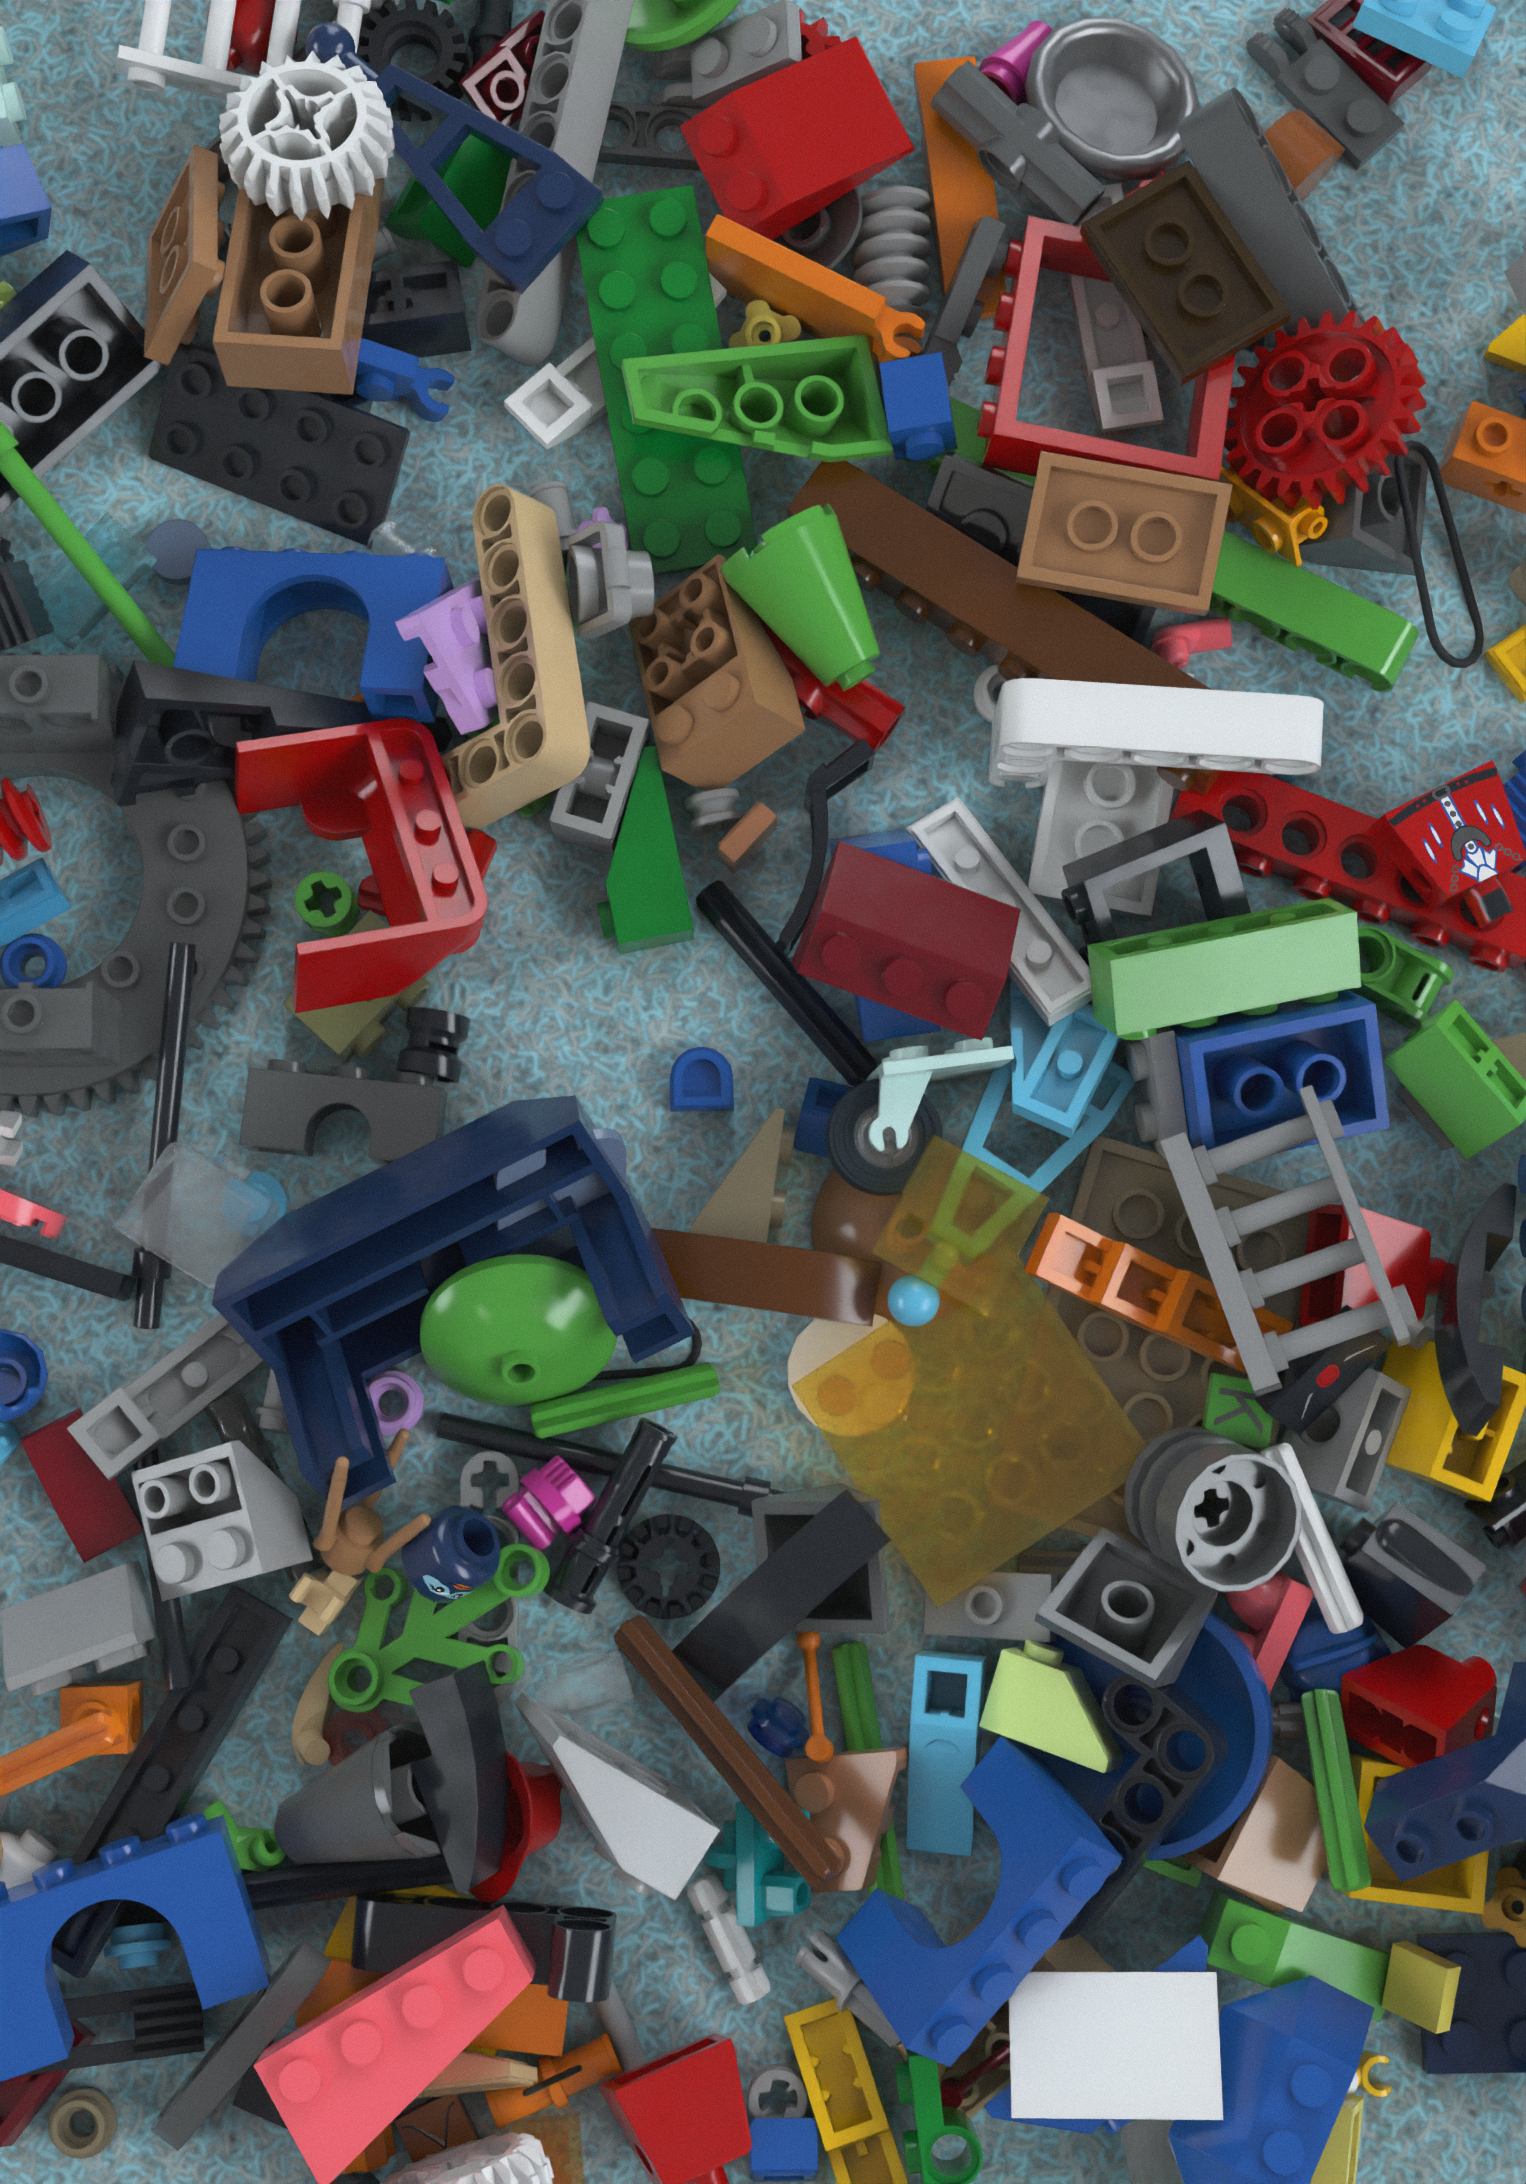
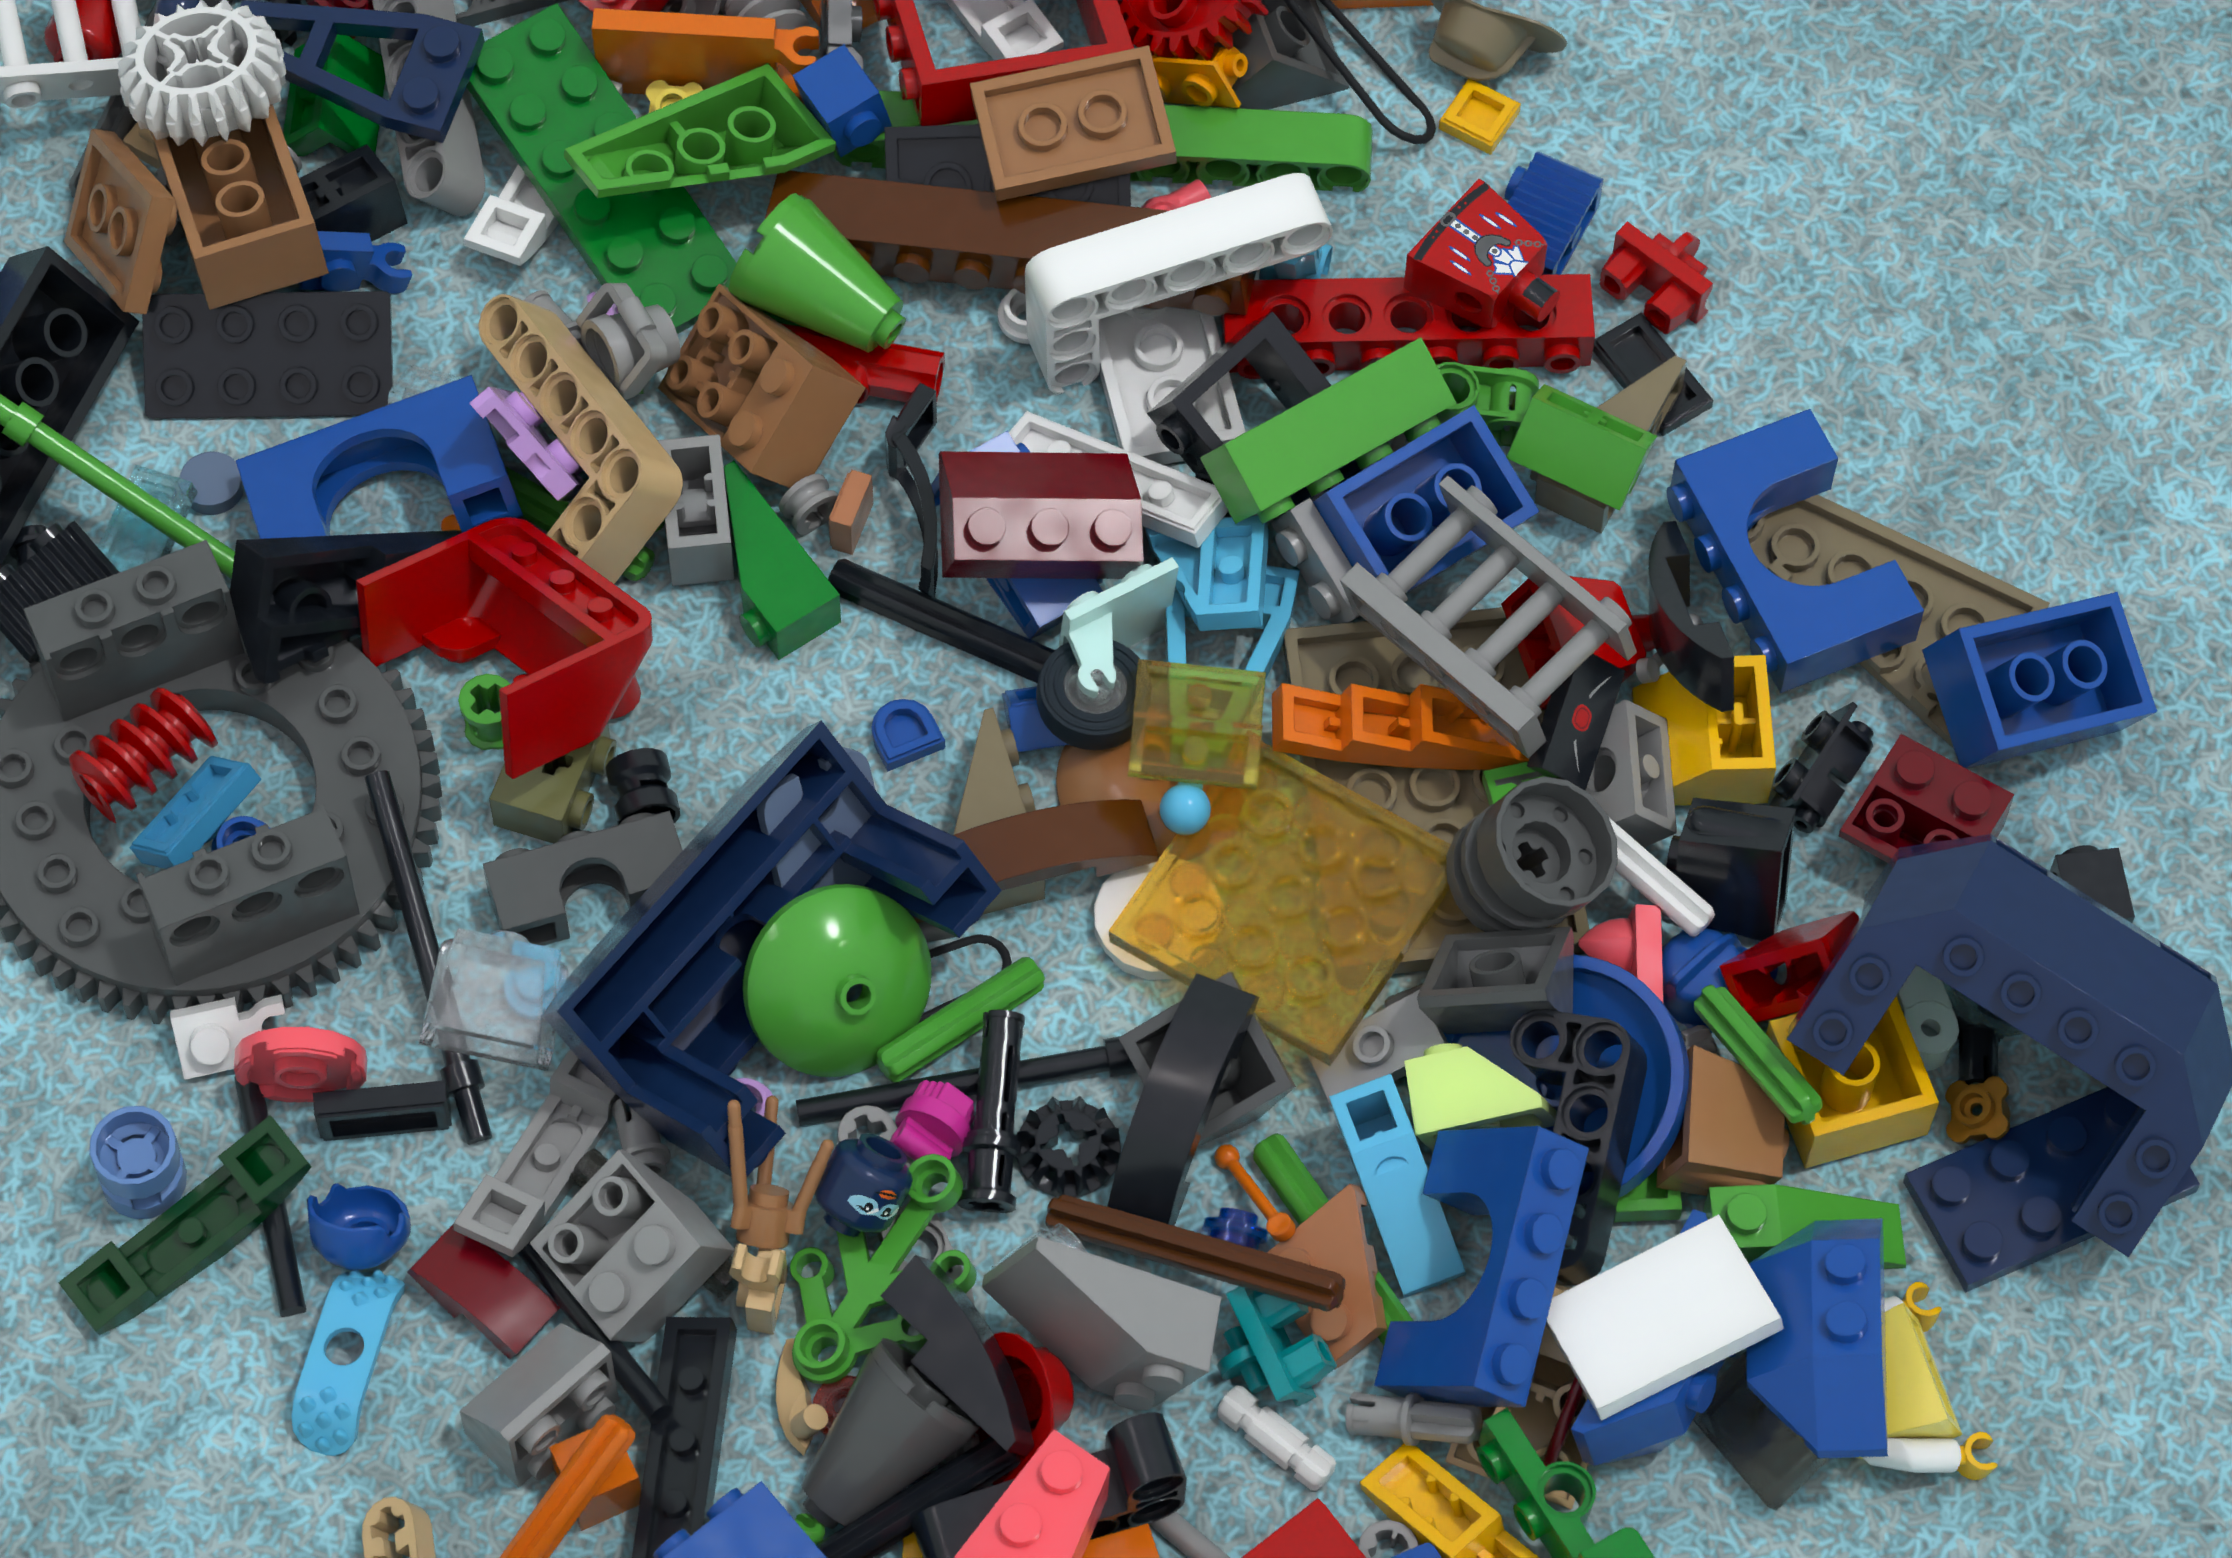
camera: 20 degrees left, 20 degrees down
(1421, 1986) = (1922, 1207): light yellow tile -> none

